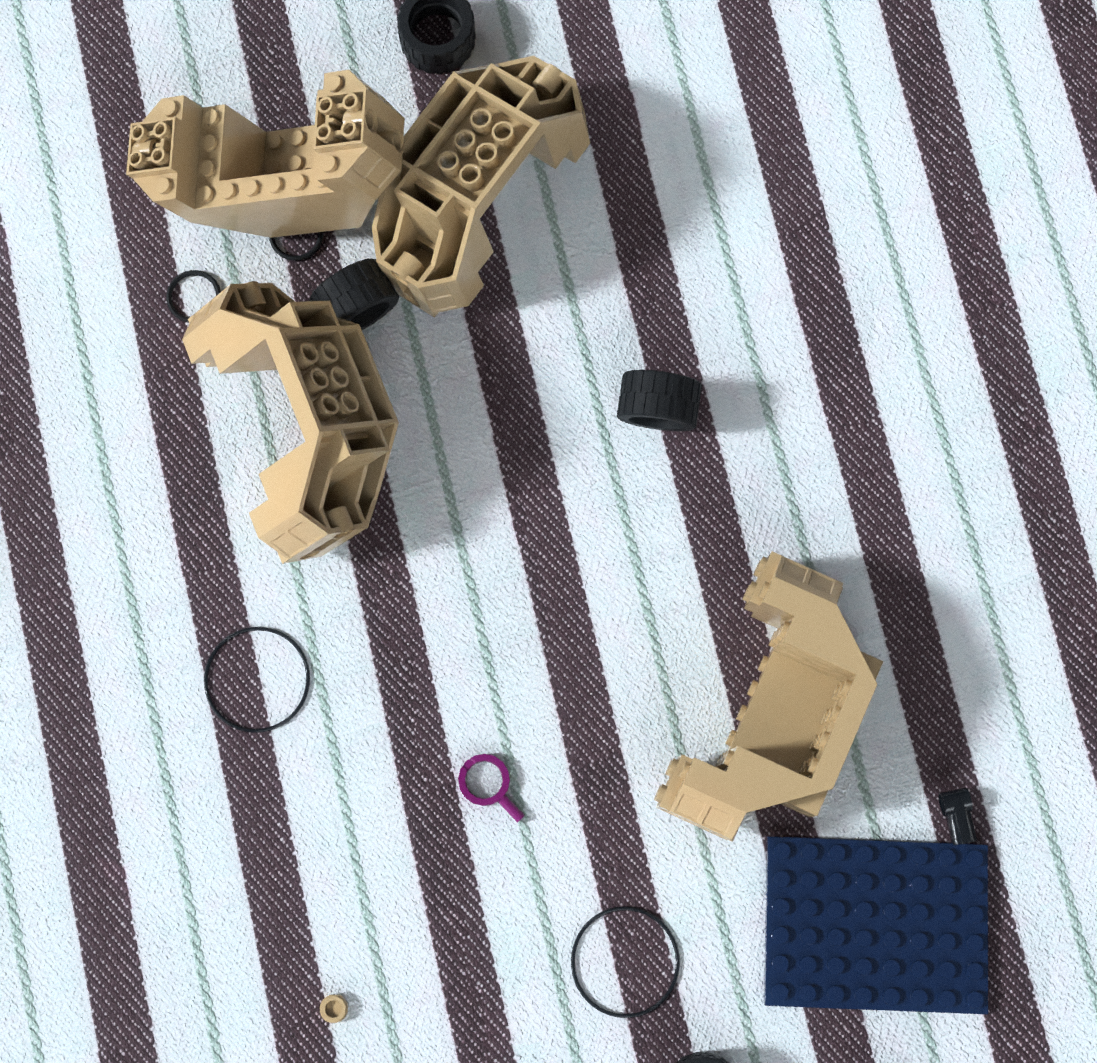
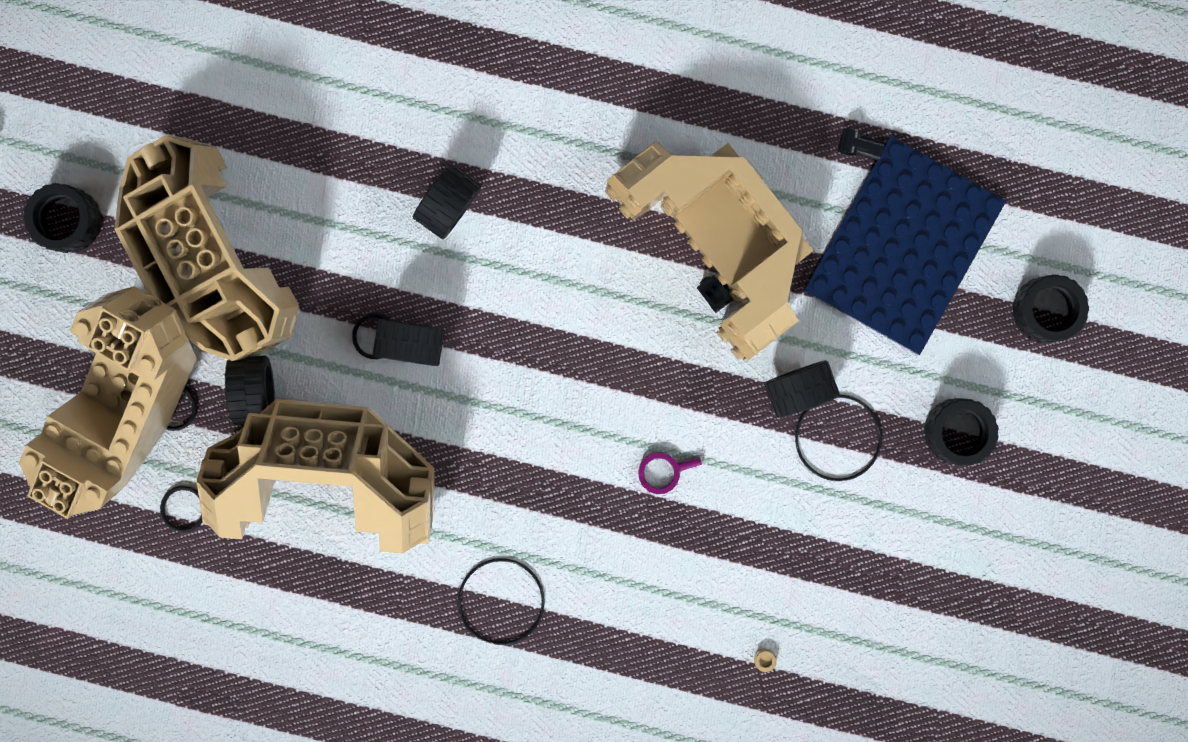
camera: 65 degrees left, 10 degrees up
(479, 378) = (354, 333): none -> black tyre
(489, 435) = (408, 342): none -> black tyre
(658, 887) = (802, 389): none -> black tyre
(712, 738) = (714, 293): none -> black bracket

